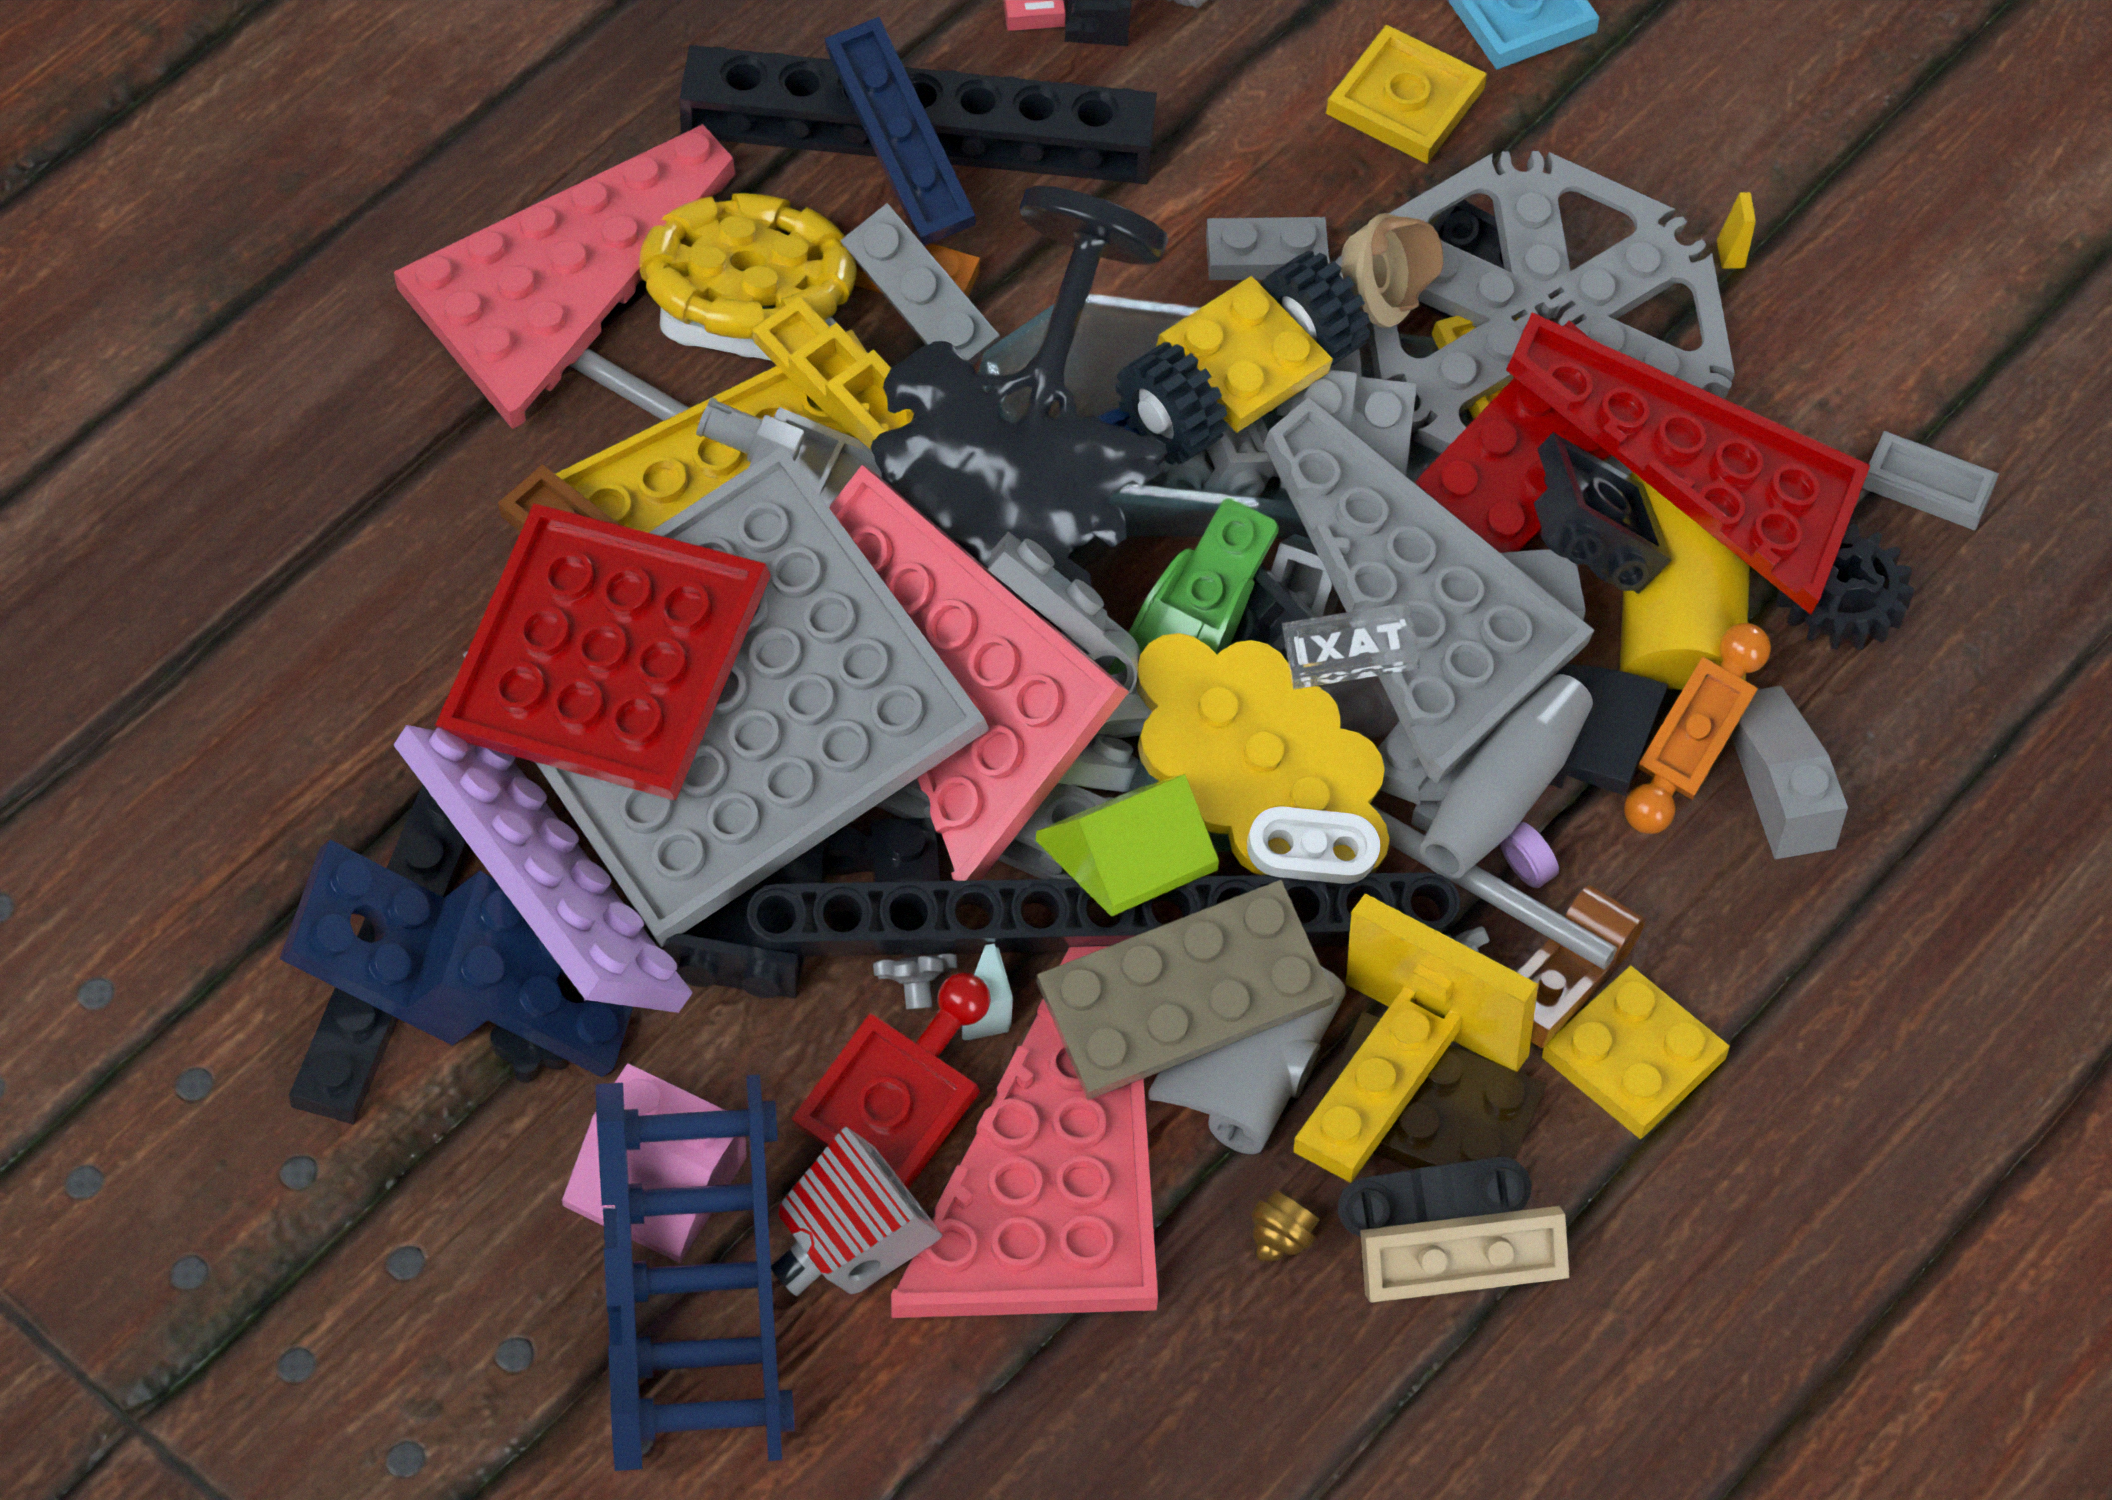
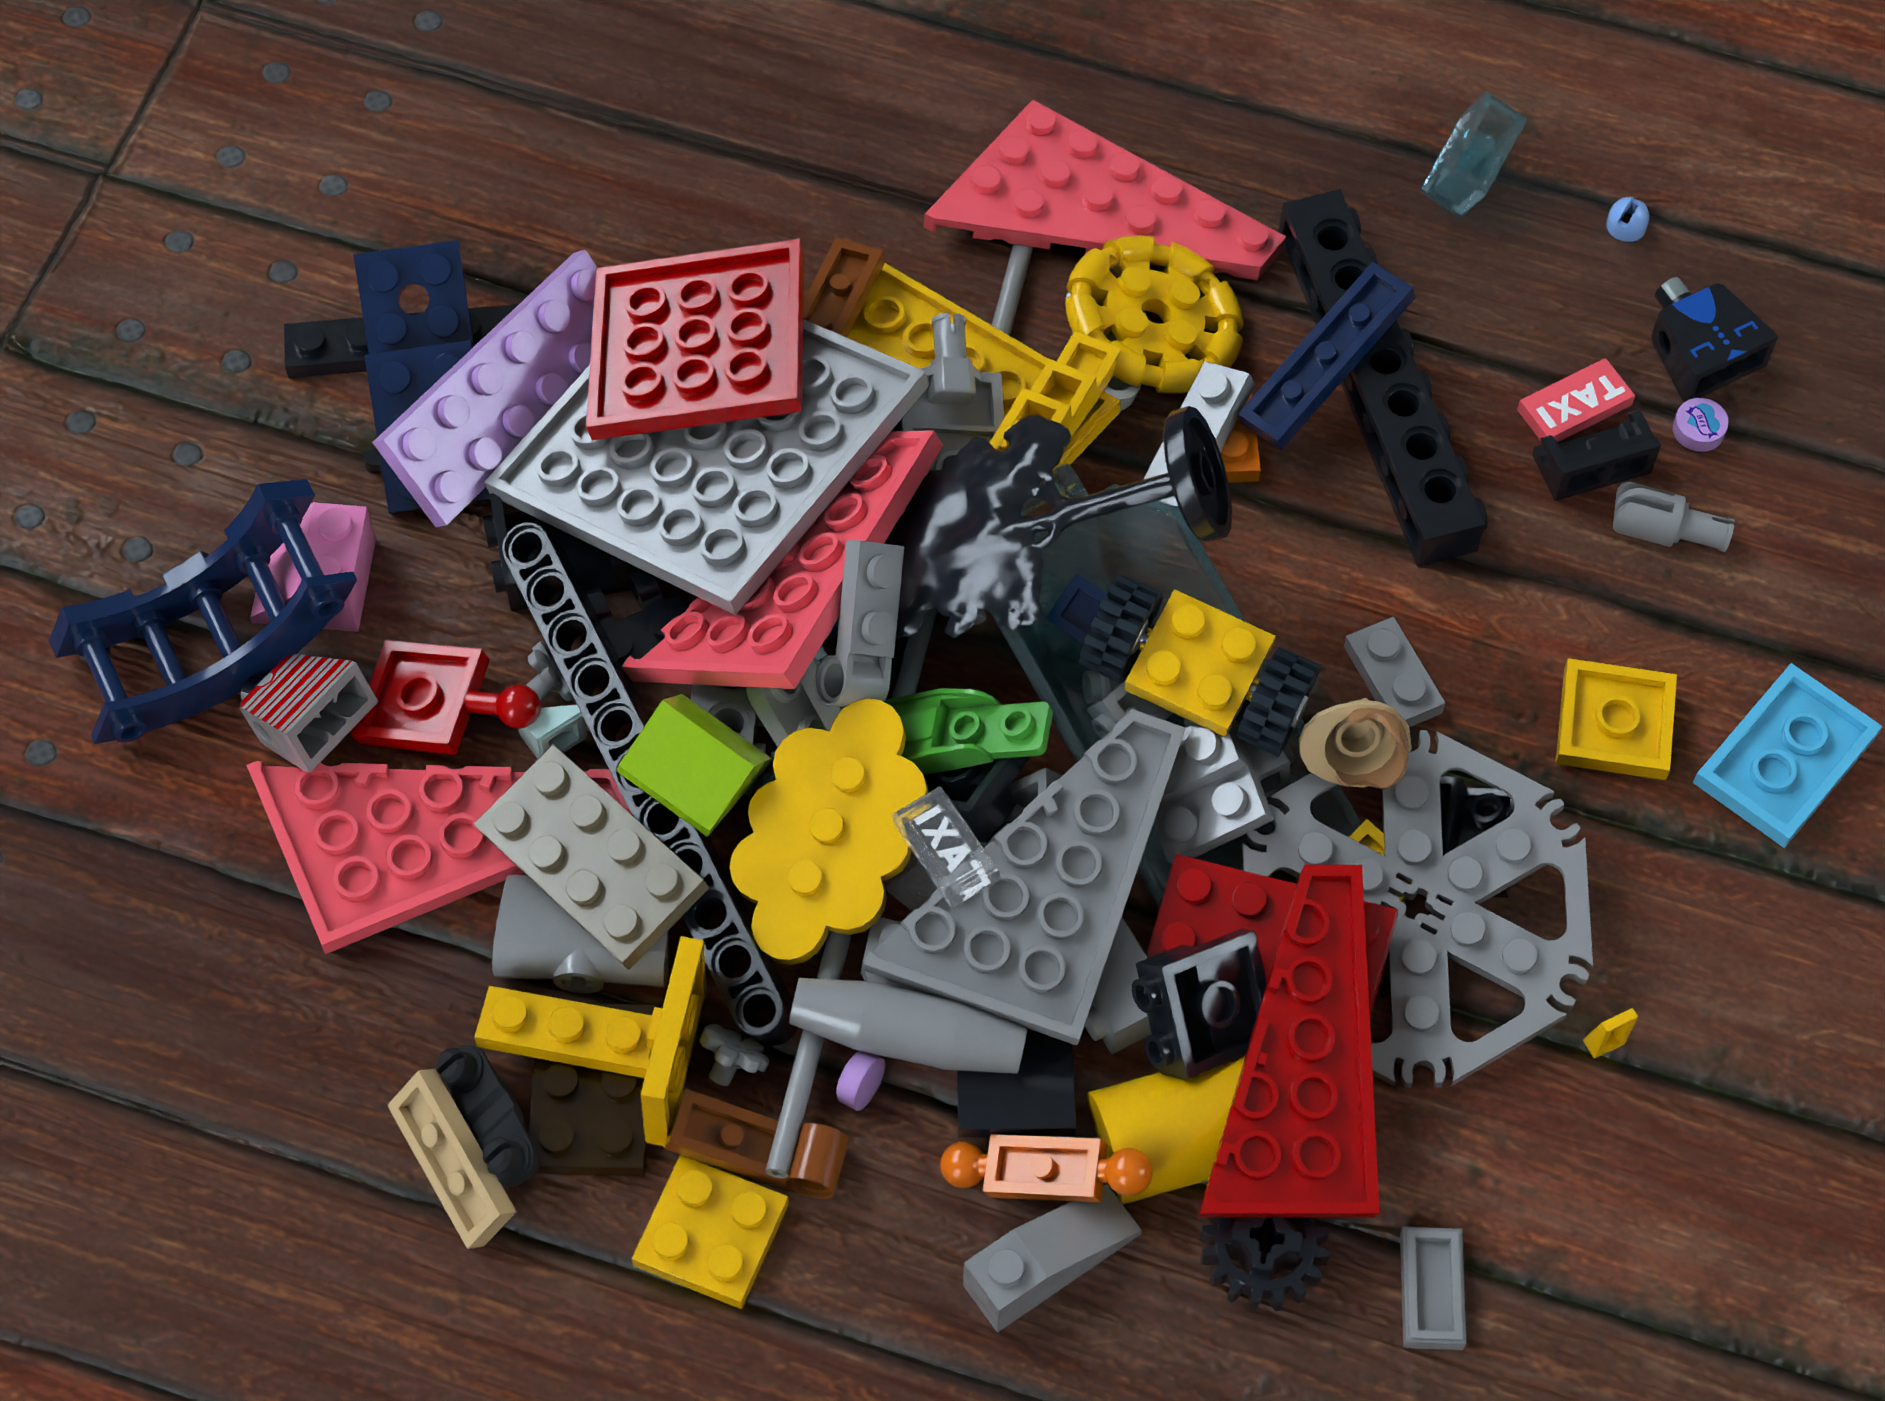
camera: 70 degrees right, 5 degrees up
(1281, 1227) = (431, 1015): pearl gold plate -> none
(1311, 843) = (751, 897): white plate -> none

